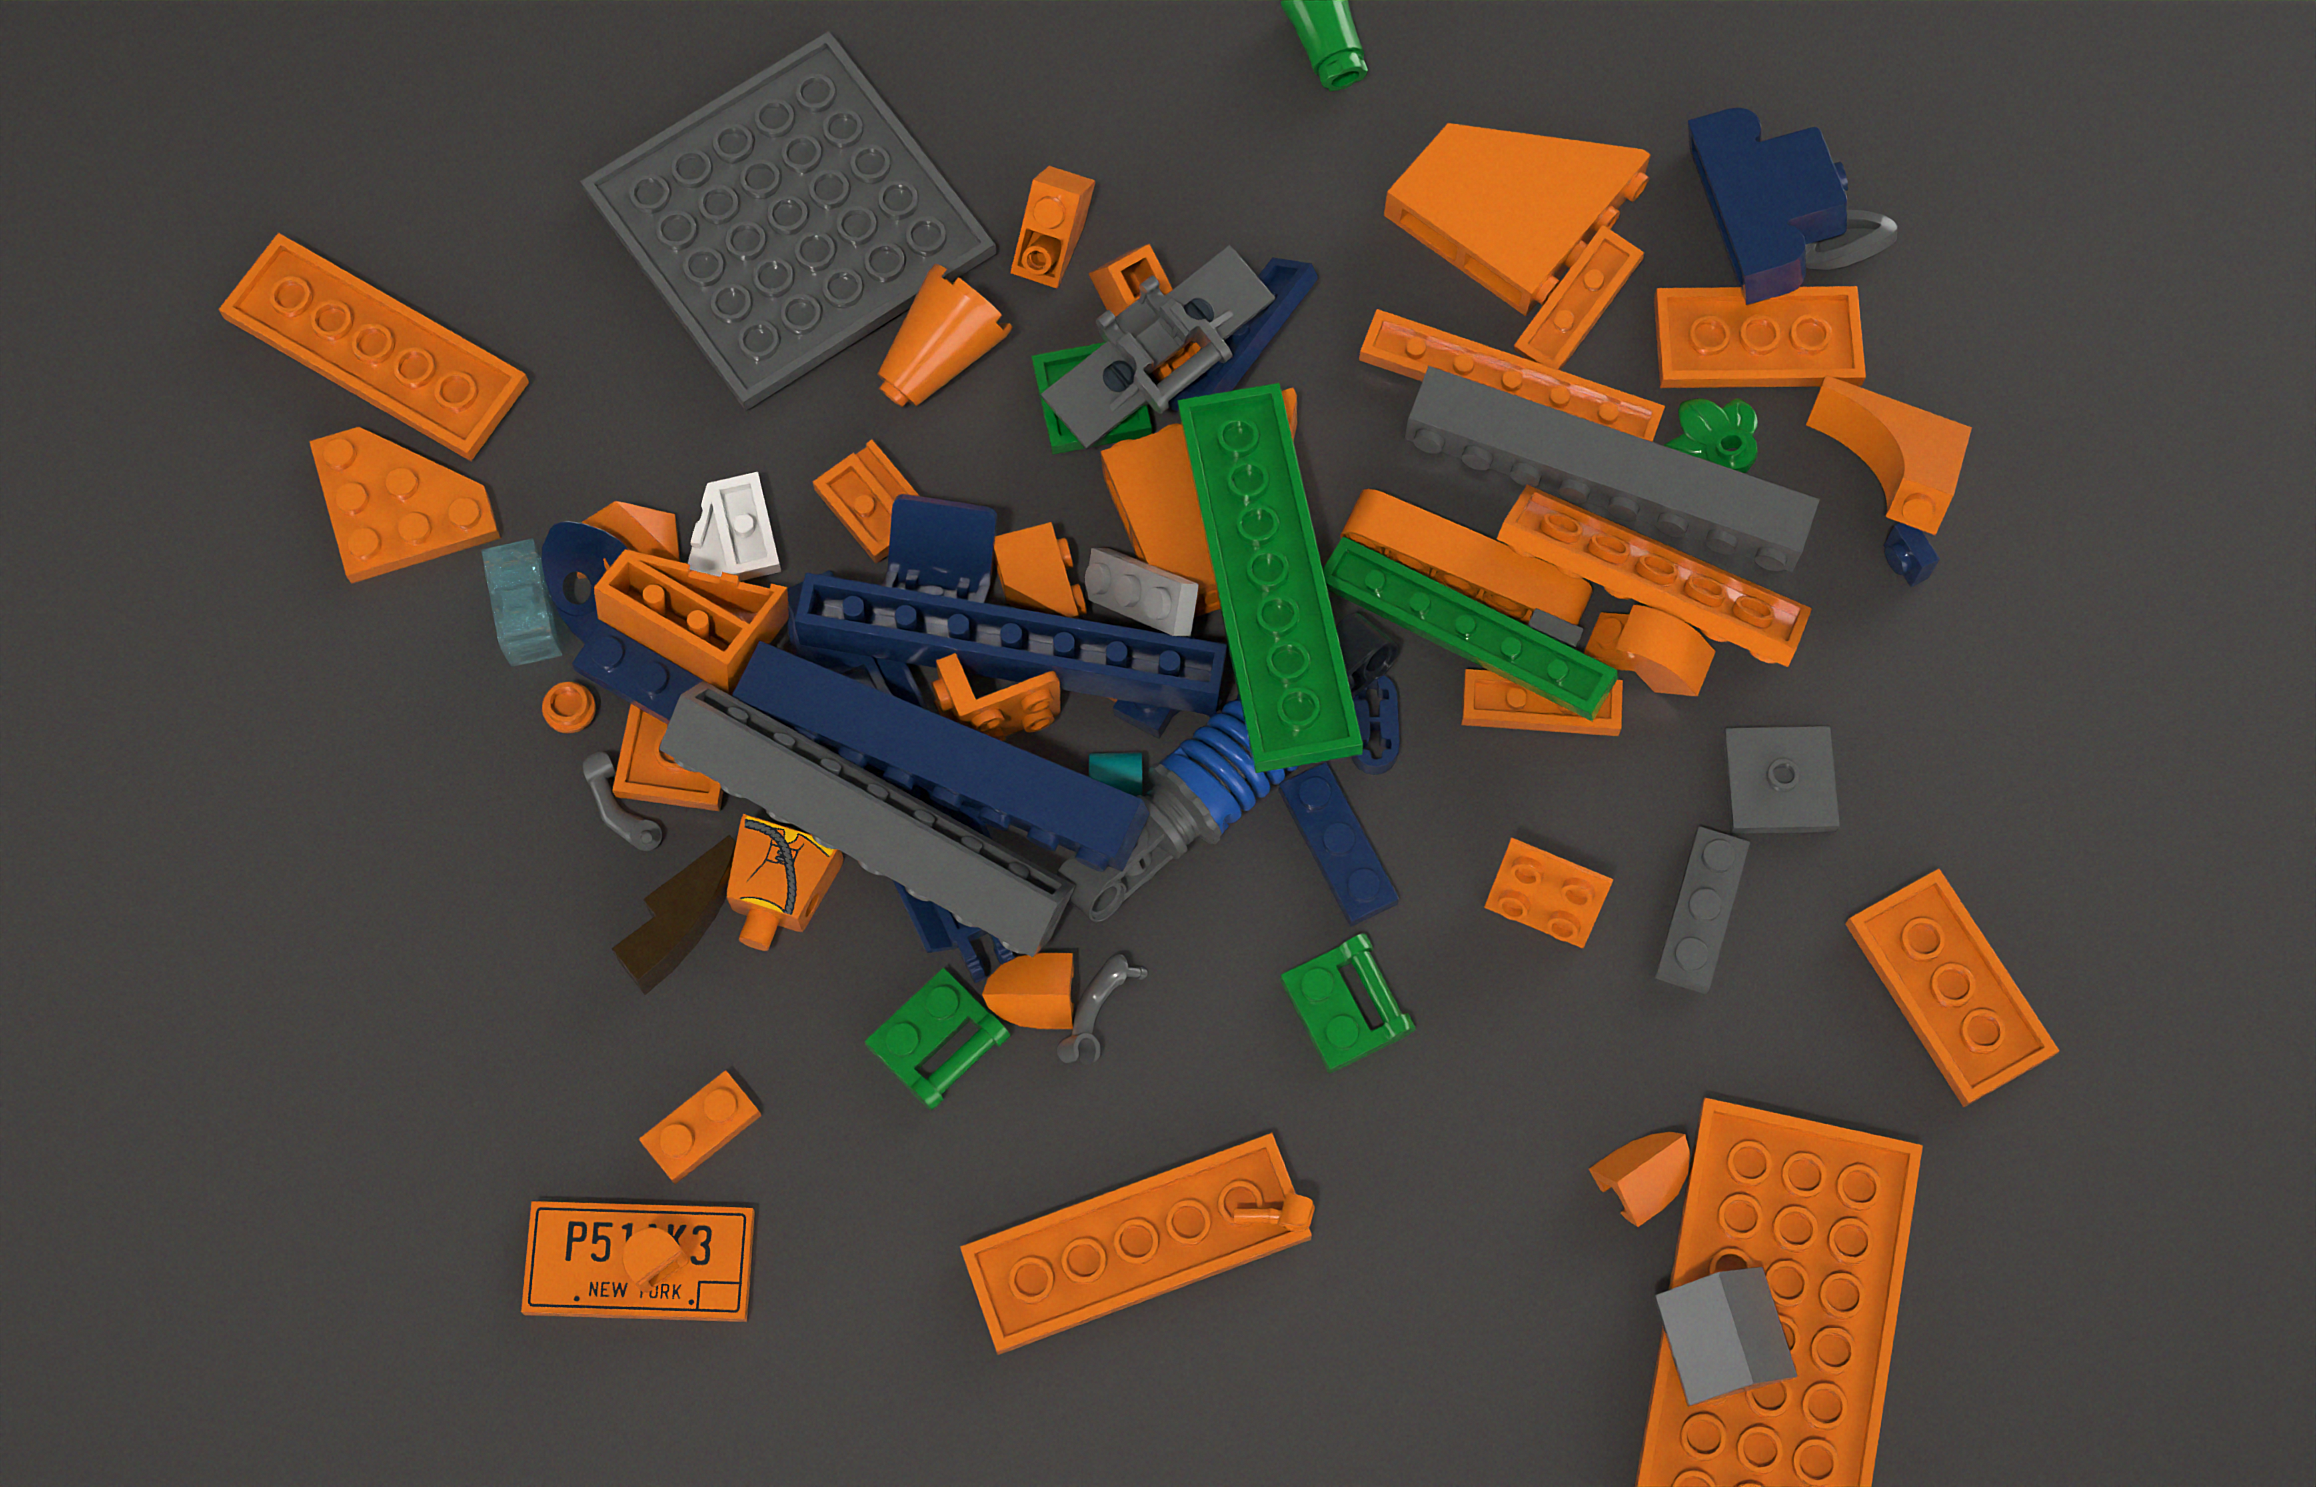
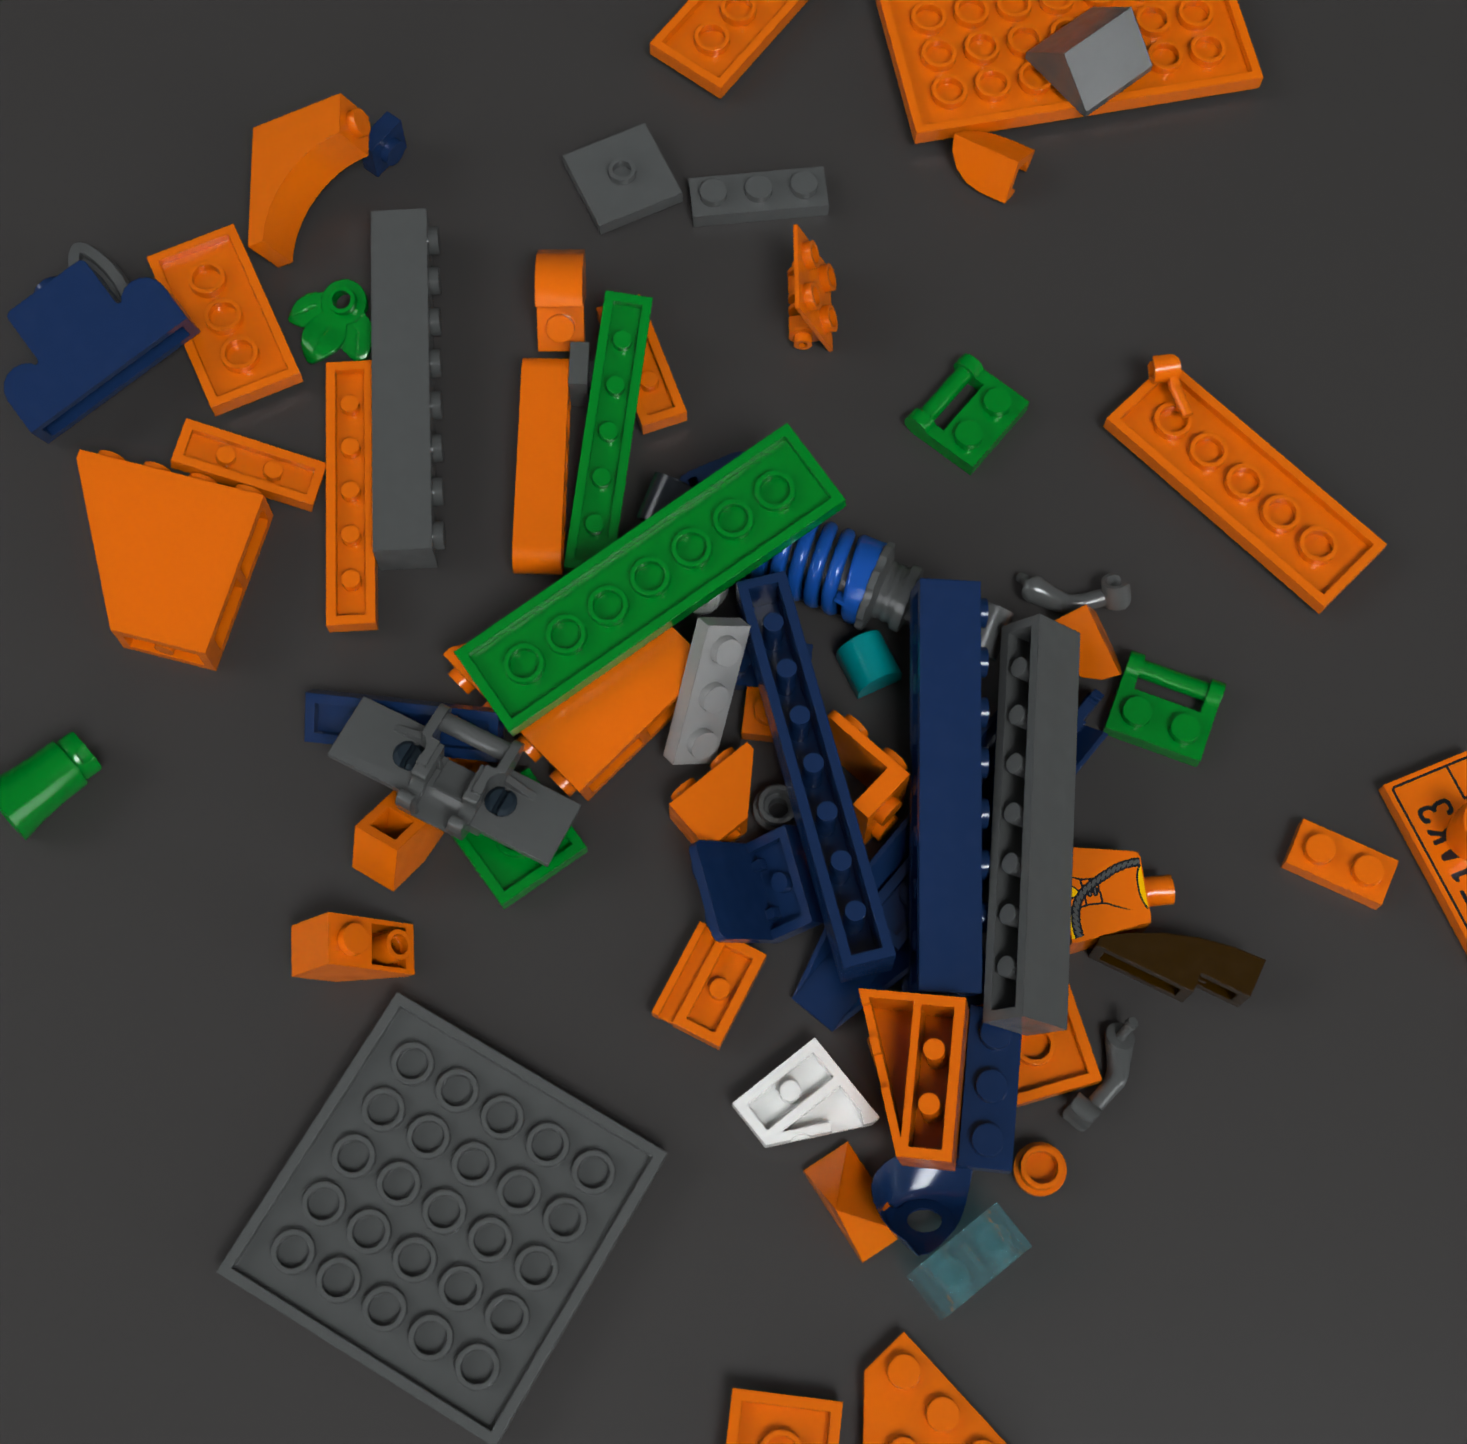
camera: 115 degrees left, 0 degrees up
(939, 338) = (523, 993): orange cone -> none
(1338, 844) = (857, 451): dark blue plate -> none
(1655, 575) = (492, 313): orange plate -> none

